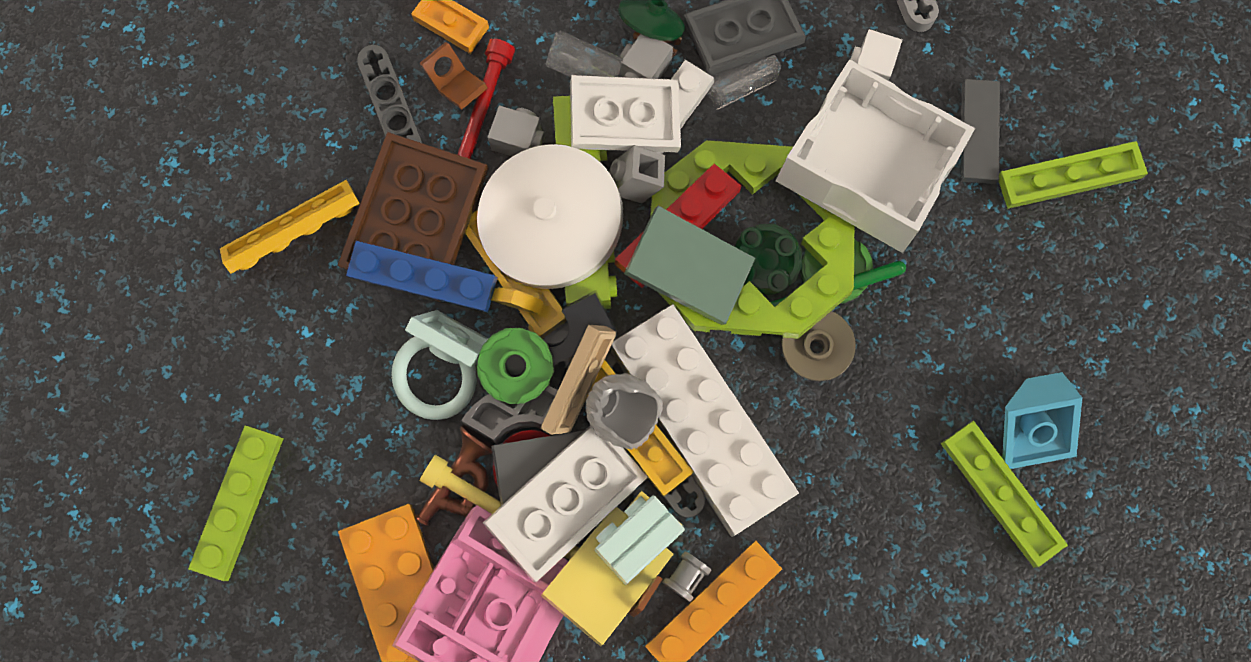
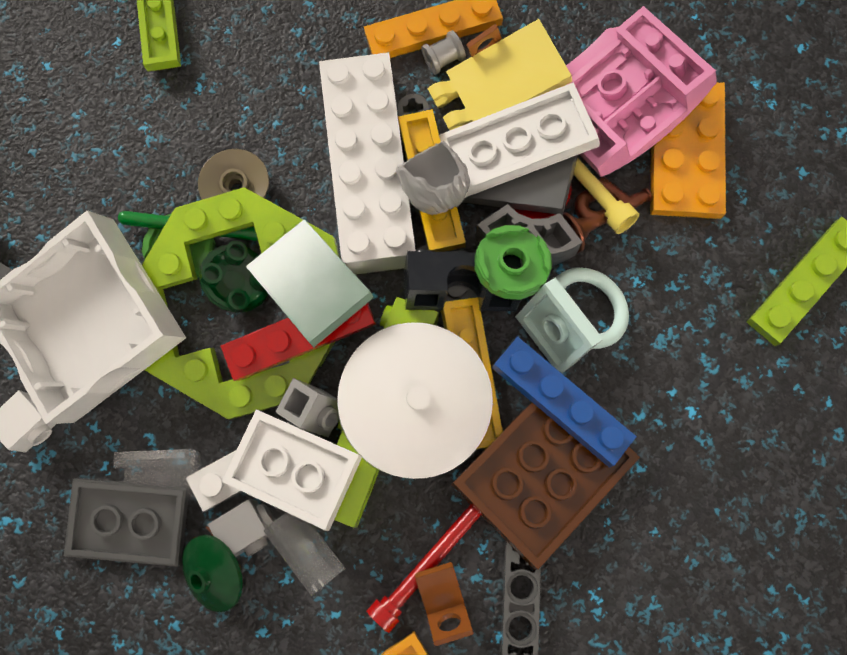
camera: 150 degrees left, 0 degrees up
(279, 232) = (674, 520): yellow plate -> none
(515, 131) = (405, 513): light grey brick -> none
(517, 299) = (484, 330): yellow tile -> none
(578, 379) = (460, 223): tan tile -> none
(638, 538) = (472, 80): light aqua brick -> none
(1042, 422) = (84, 42): medium azure slope -> none

